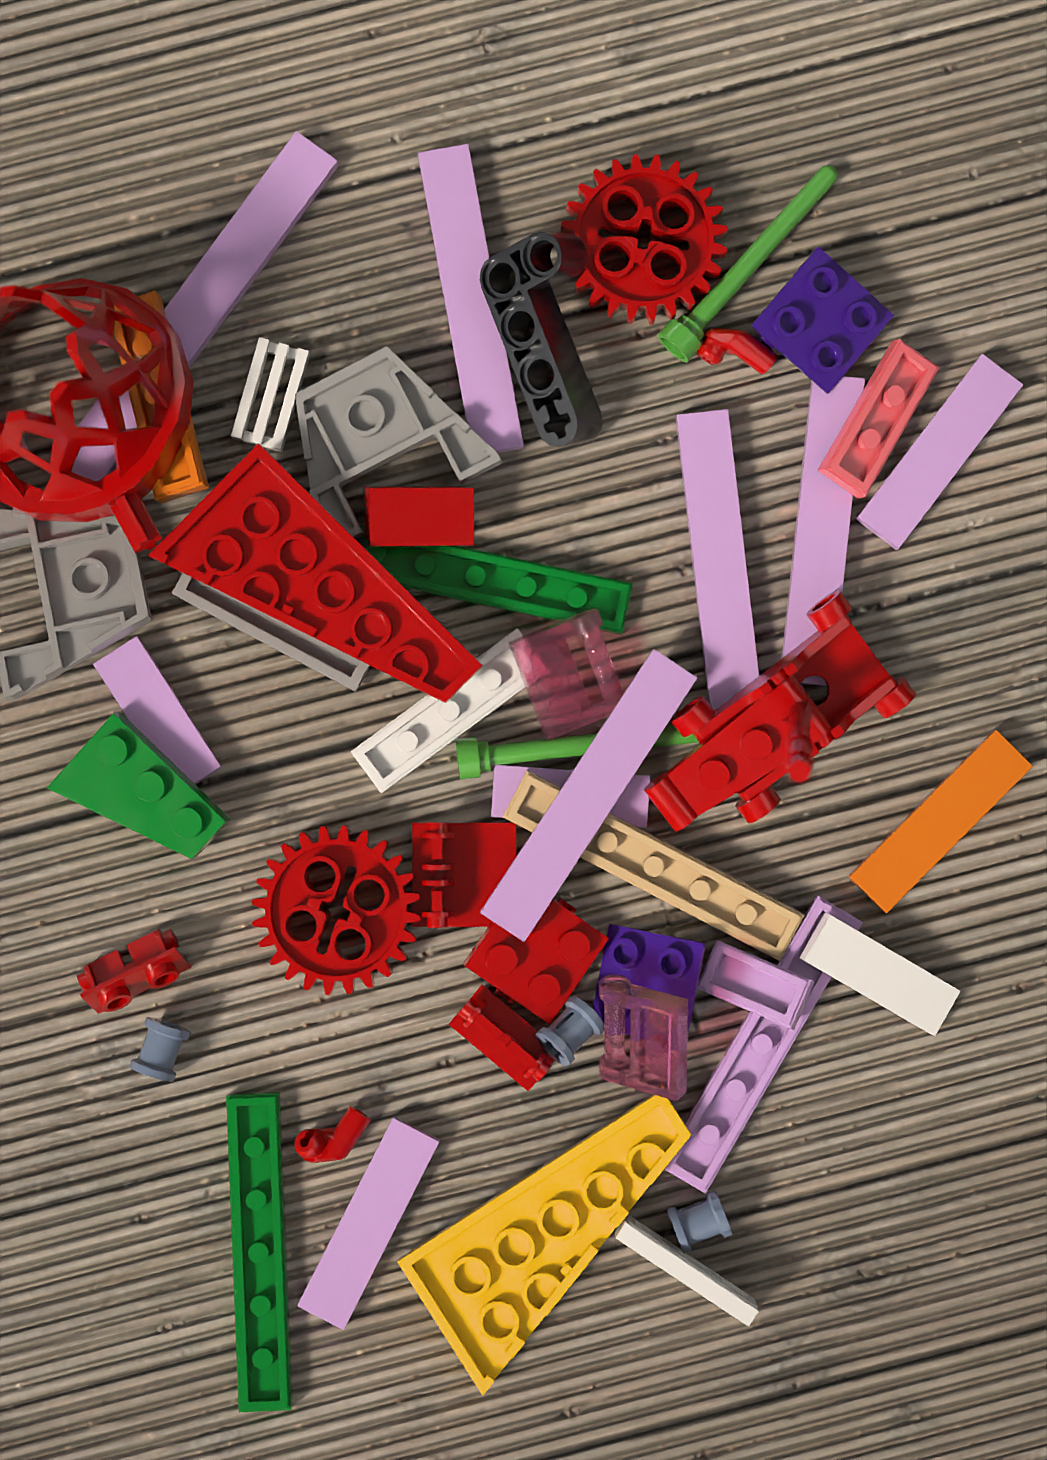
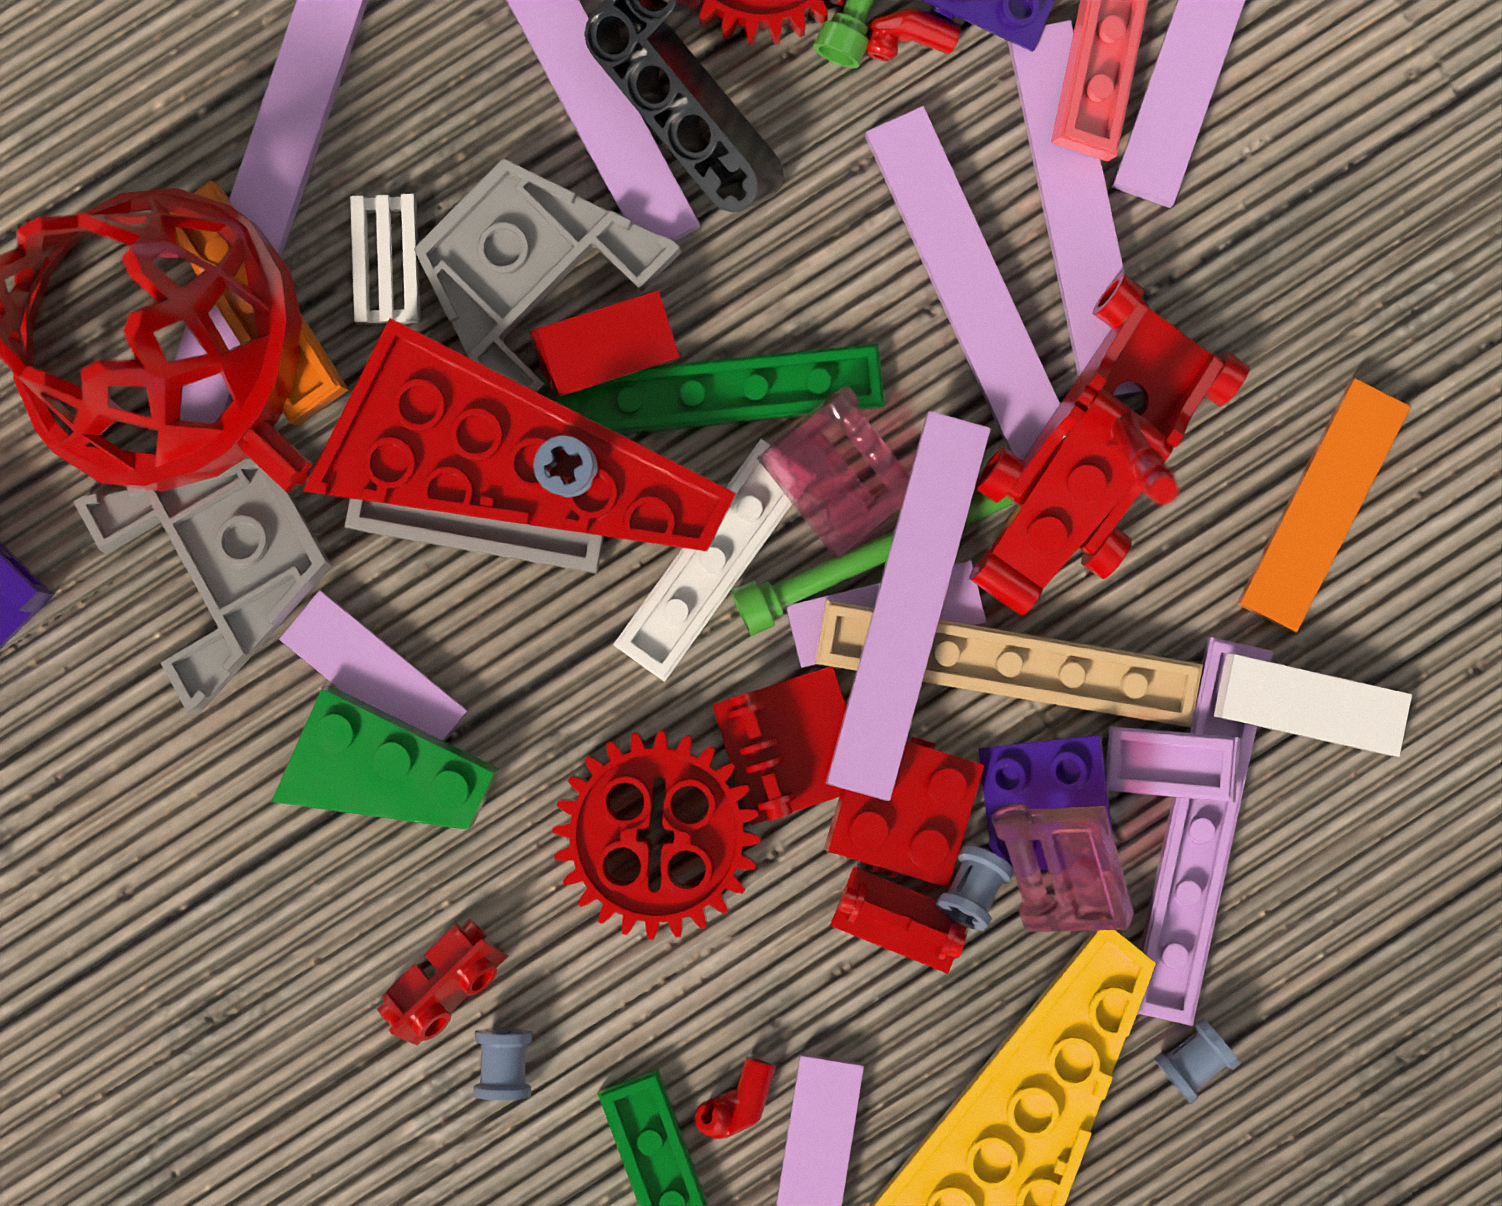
camera: 20 degrees left, 0 degrees up
(344, 591) = (547, 458): none -> sand blue bush
(687, 1269) = (1202, 1122): white tile -> none

